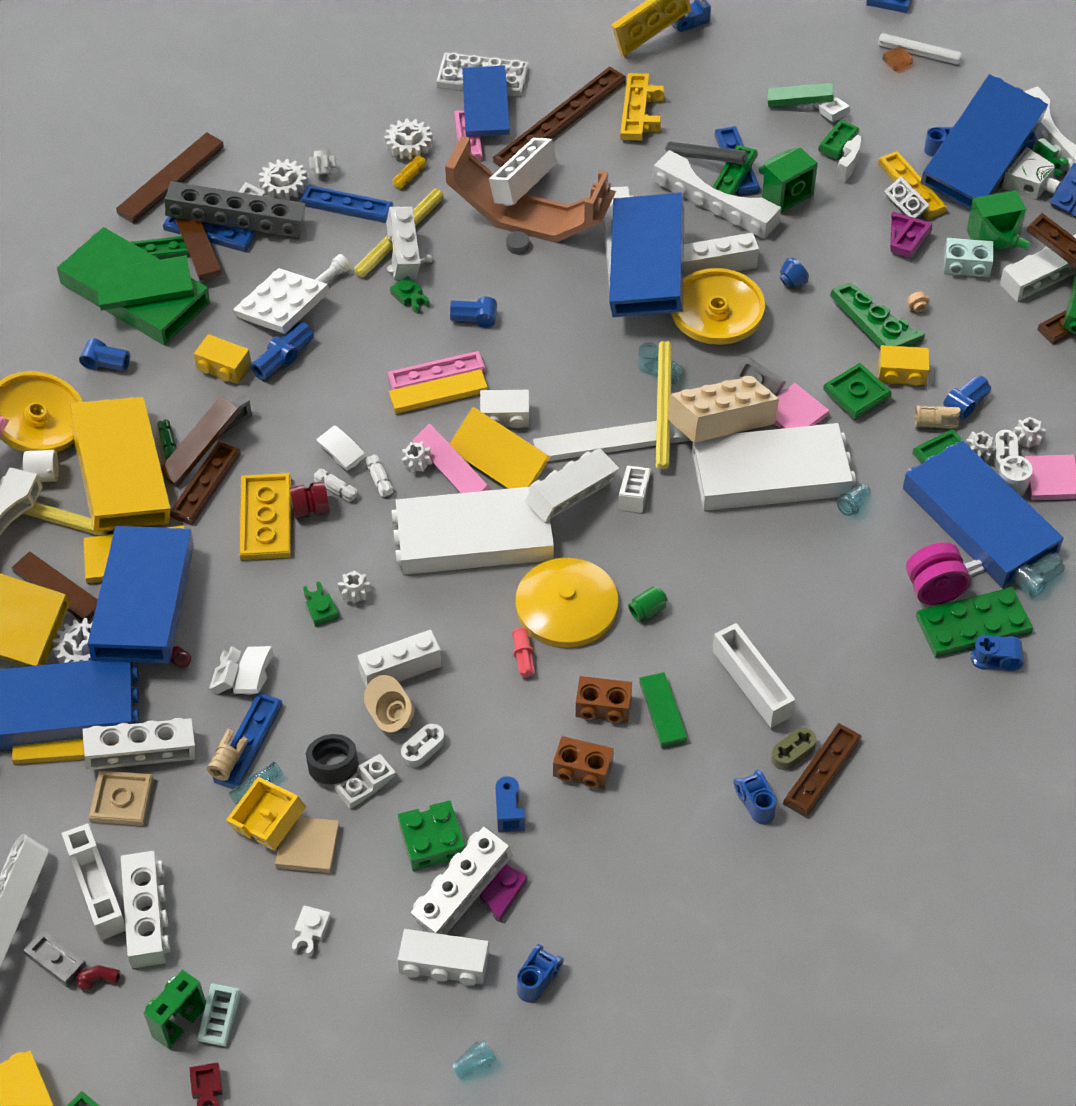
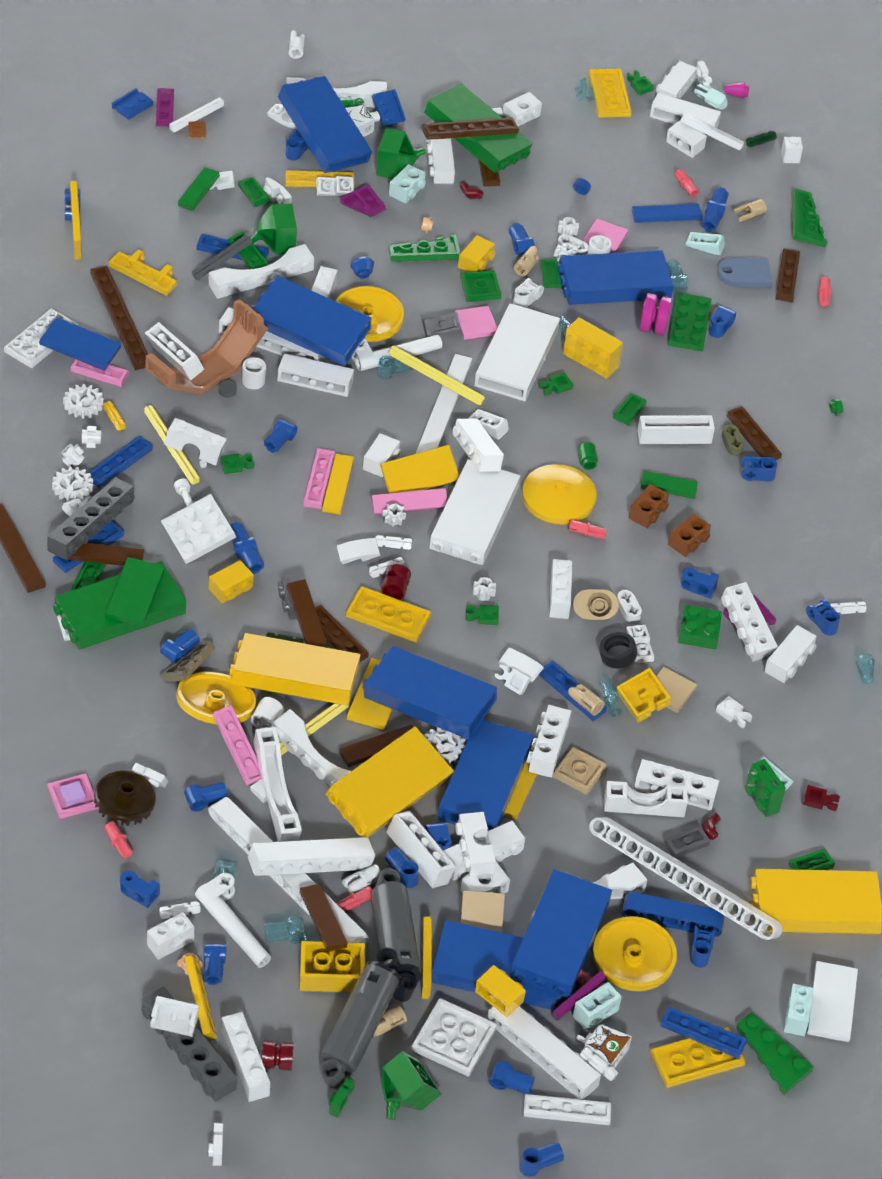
camera: 70 degrees left, 5 degrees down
(80, 371) = (188, 663): none -> dark tan wing
(359, 165) = (91, 436): none -> white gear
(549, 250) = (253, 373): none -> white piece
(575, 997) = (849, 607): none -> white axle
(590, 303) = (315, 375): none -> white brick
(655, 329) = (367, 359): none -> white axle
(722, 408) = (466, 347): tan brick -> none
(748, 528) = (557, 383): none -> green plate
(766, 618) = (629, 409): none -> green tile
(825, 532) = (592, 348): none -> yellow brick
(878, 436) = (527, 293): none -> white piece
(910, 21) = (165, 107): none -> magenta tile
(944, 844) = (836, 406): none -> green plate
(1010, 320) = (471, 193): none -> dark red arm

